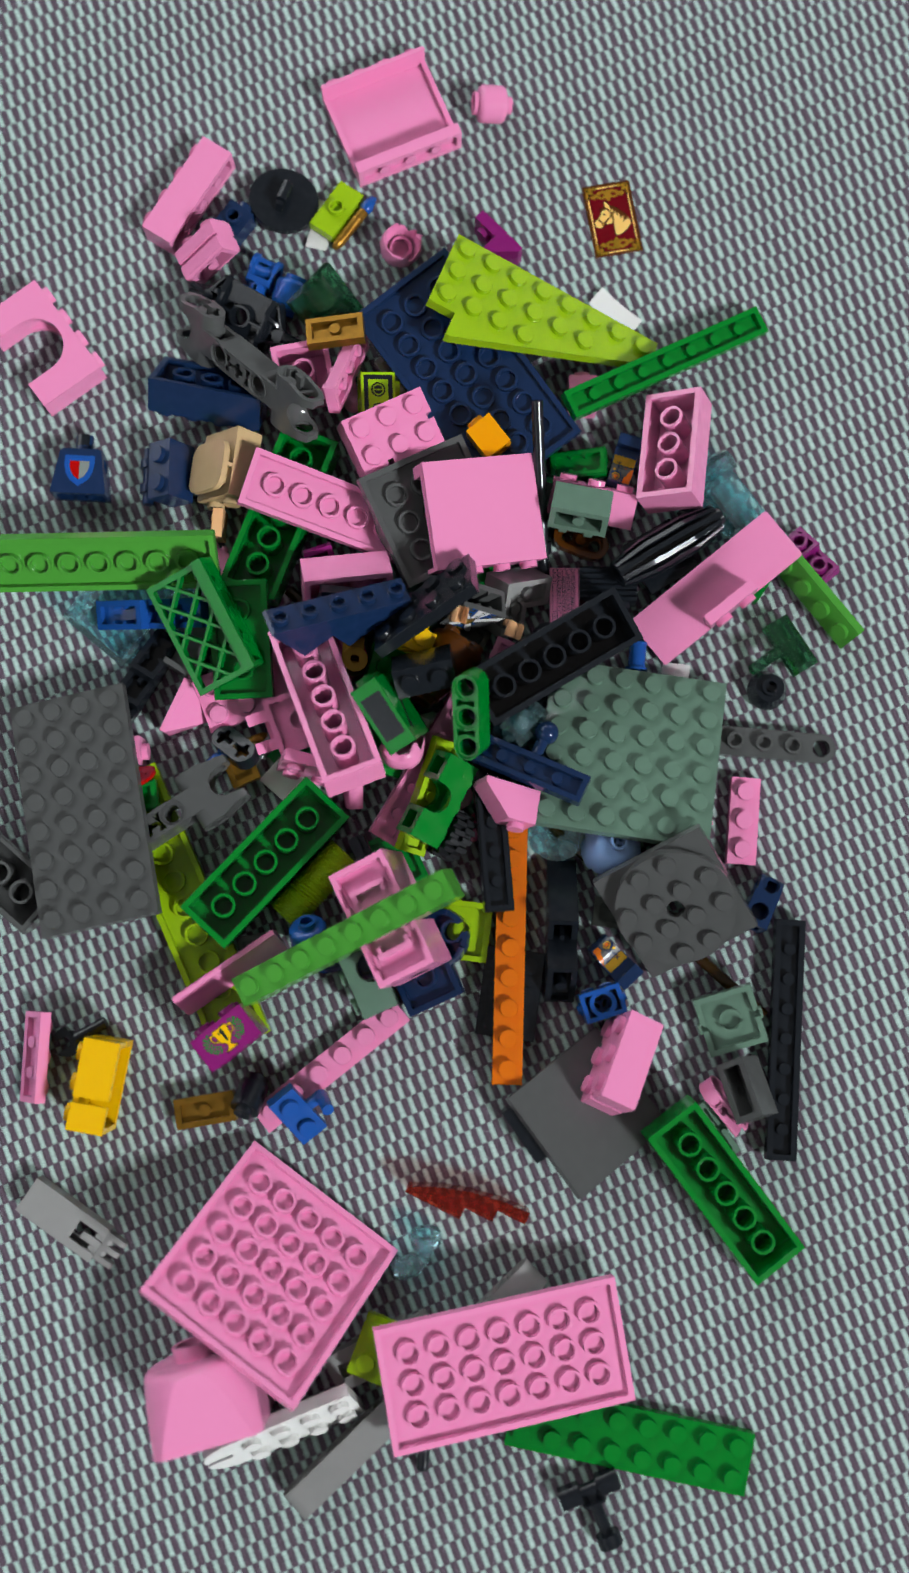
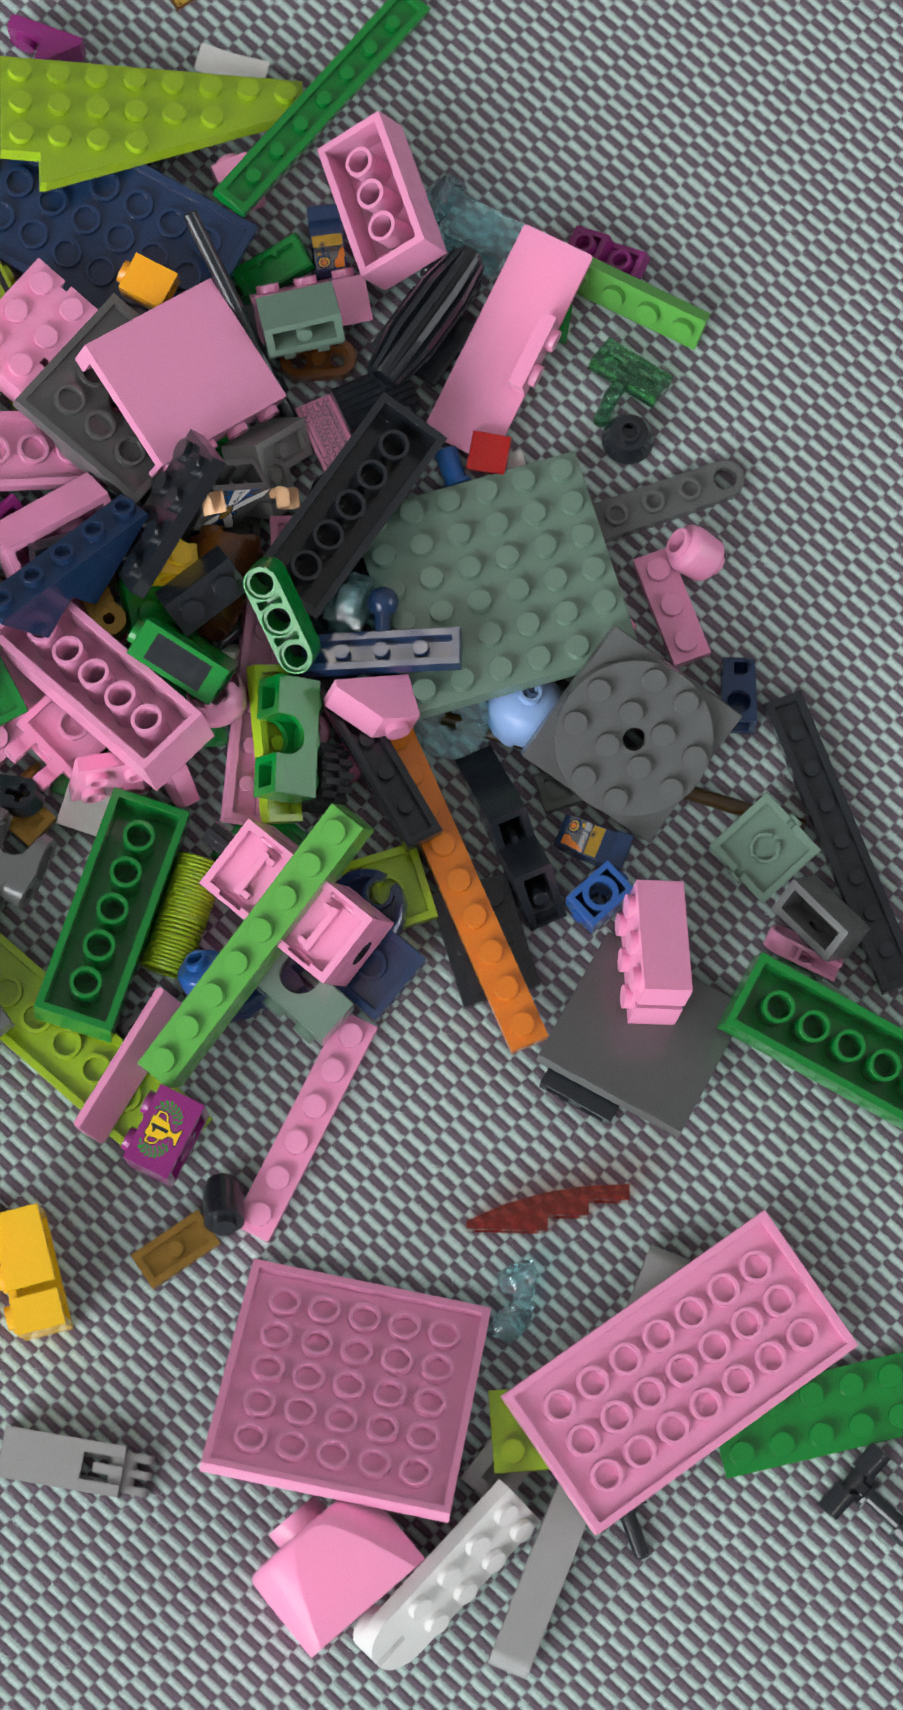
camera: 25 degrees left, 5 degrees down
(299, 1113) = (292, 1197): blue plate -> none
(667, 658) = (489, 453): none -> red tile
(777, 792) = (695, 552): none -> bright pink head

